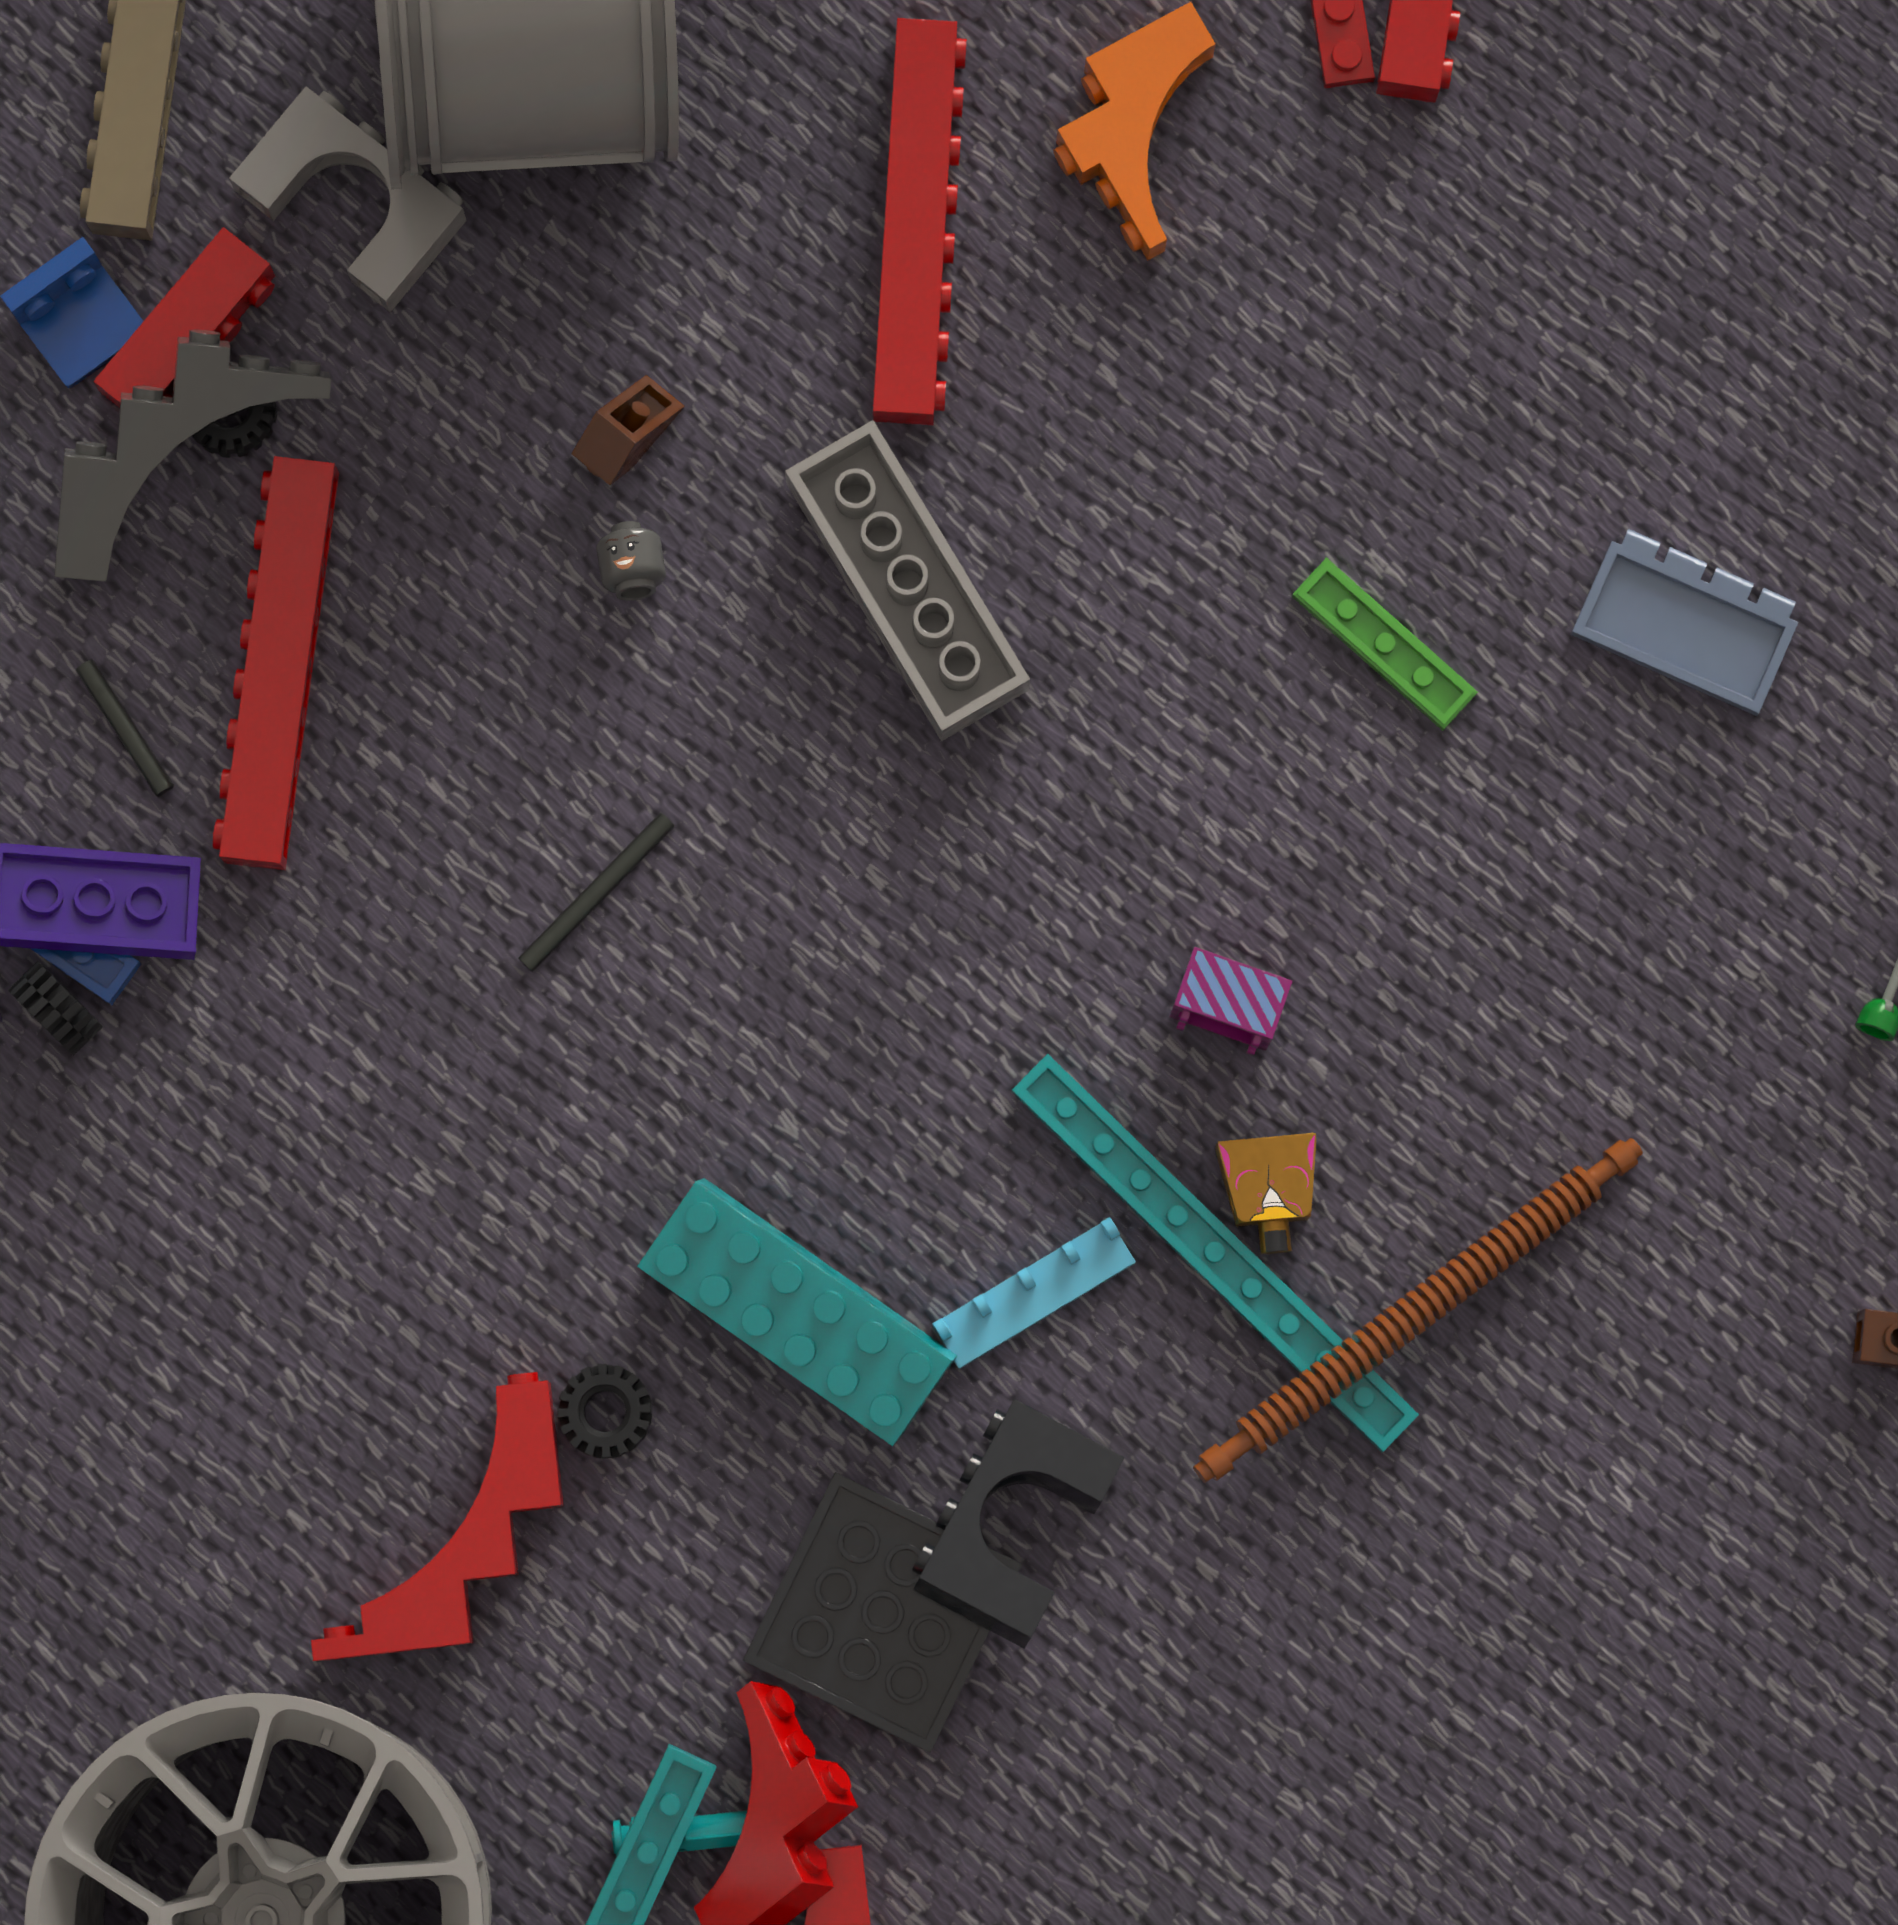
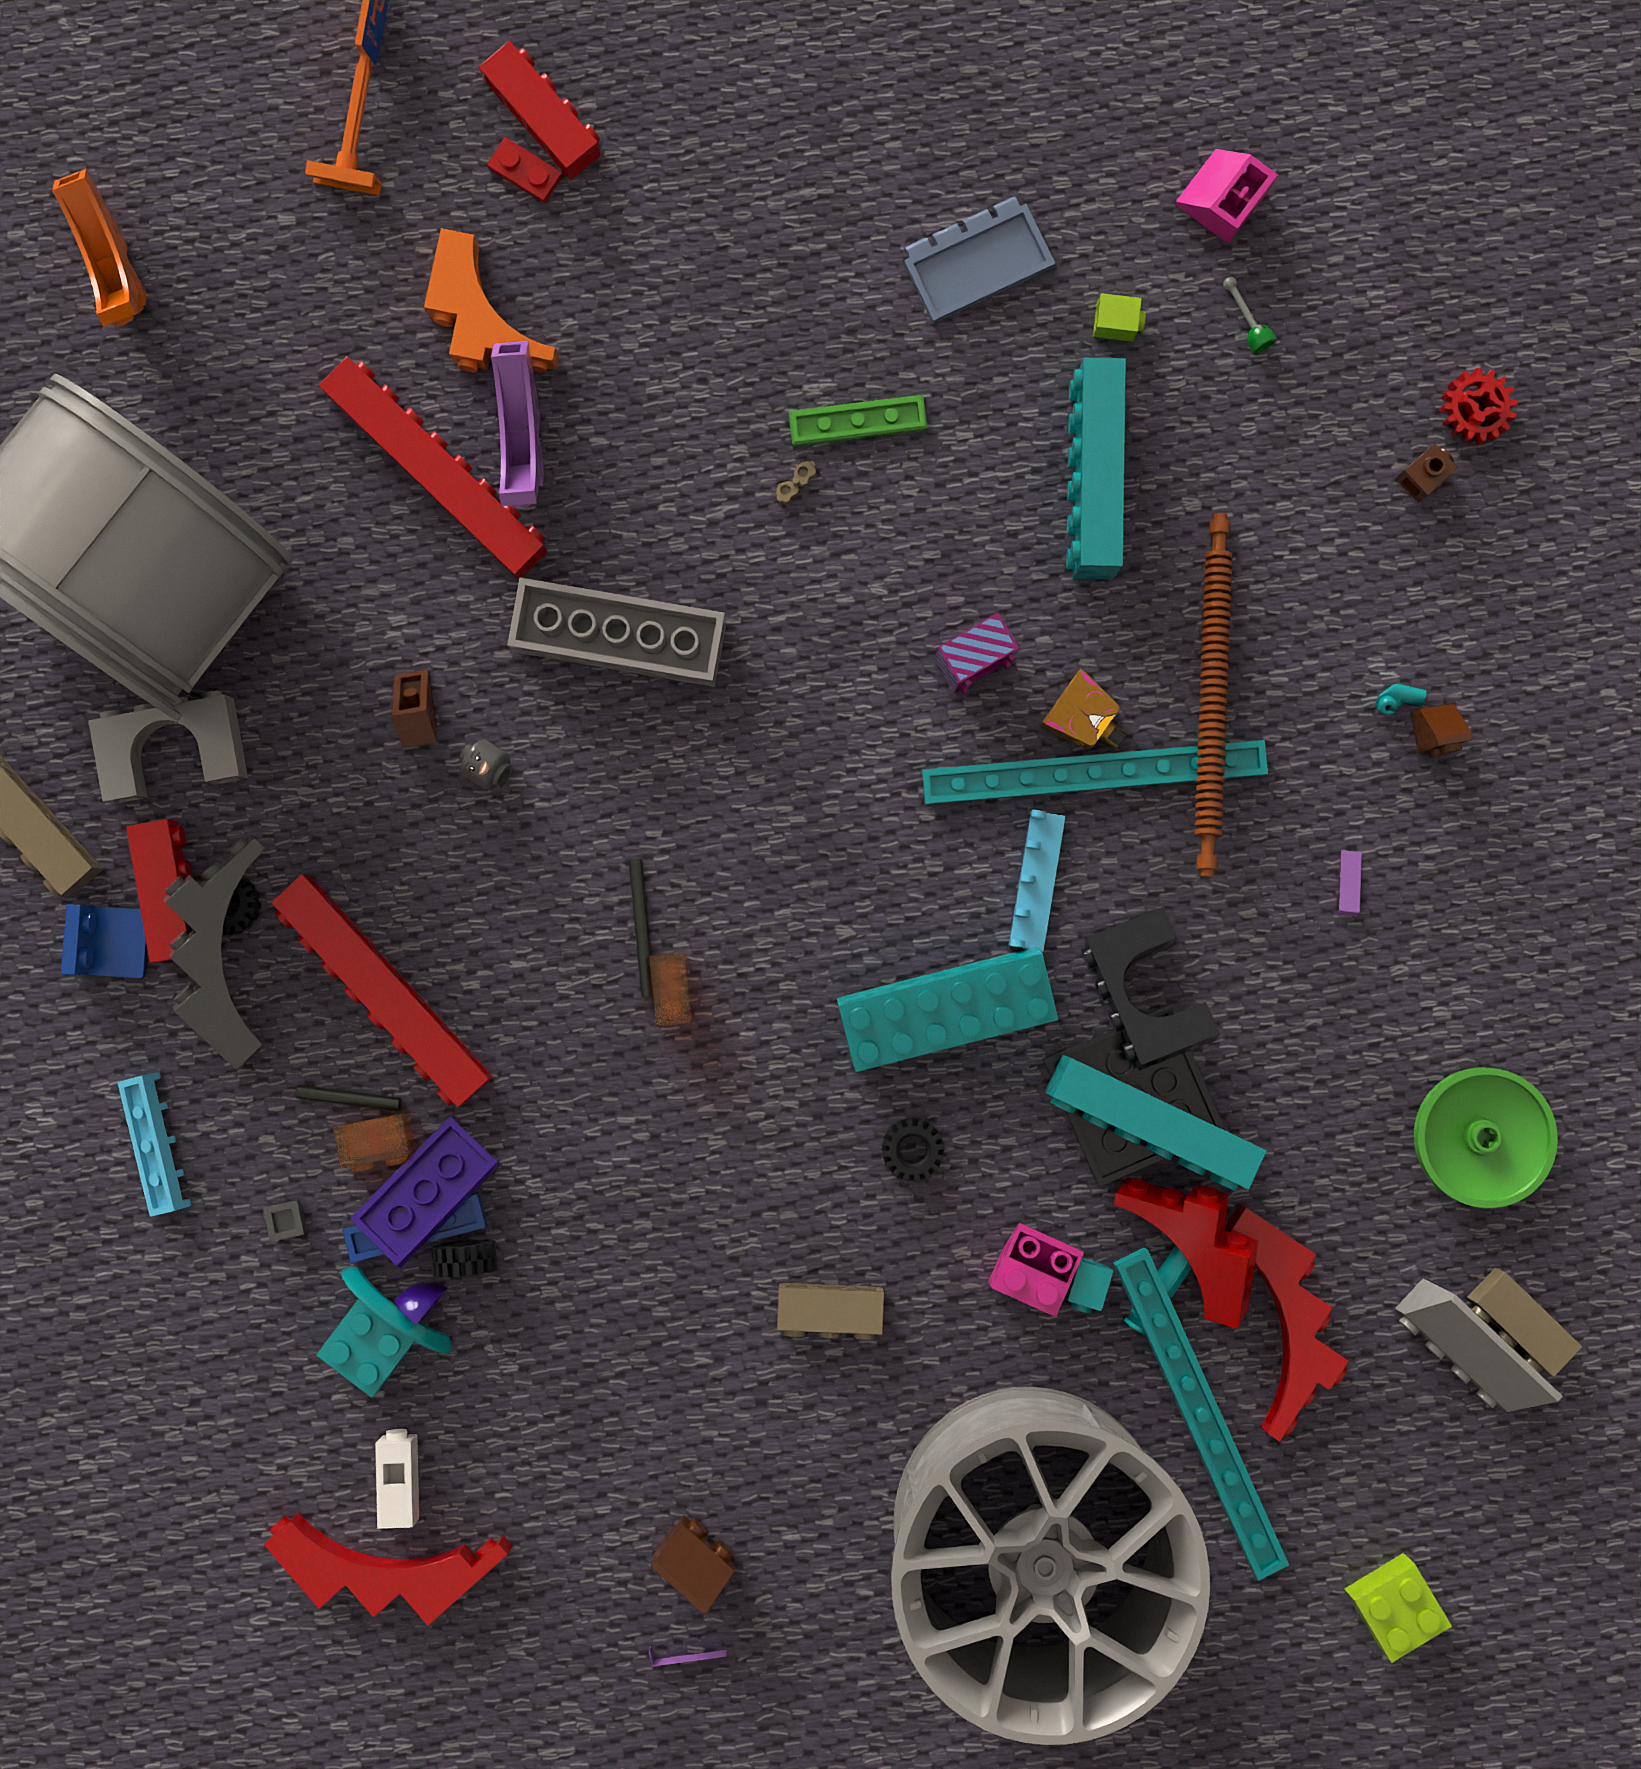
camera: 45 degrees left, 5 degrees up
(102, 797) = (373, 1141): none -> clear orange brick
(341, 1472) = (830, 1310): none -> dark tan brick
(434, 1602) = (937, 1320): red arch -> none
(555, 982) = (671, 989): none -> clear orange brick
(587, 1664) = (1035, 1269): none -> dark pink slope
(618, 1743) = (1089, 1286): none -> teal brick
(867, 1649) = (1155, 1121): none -> teal brick
(1044, 274) = (518, 424): none -> medium lavender arch
(1237, 634) = (802, 475): none -> dark tan piece
(1341, 1657) = (1350, 883): none -> medium lavender piece
(1556, 962) = (1098, 468): none -> teal brick
(1603, 1604) = (1440, 730): none -> reddish brown slope
(1604, 1526) = (1398, 694): none -> teal arm
(1758, 837) = (1118, 317): none -> lime brick

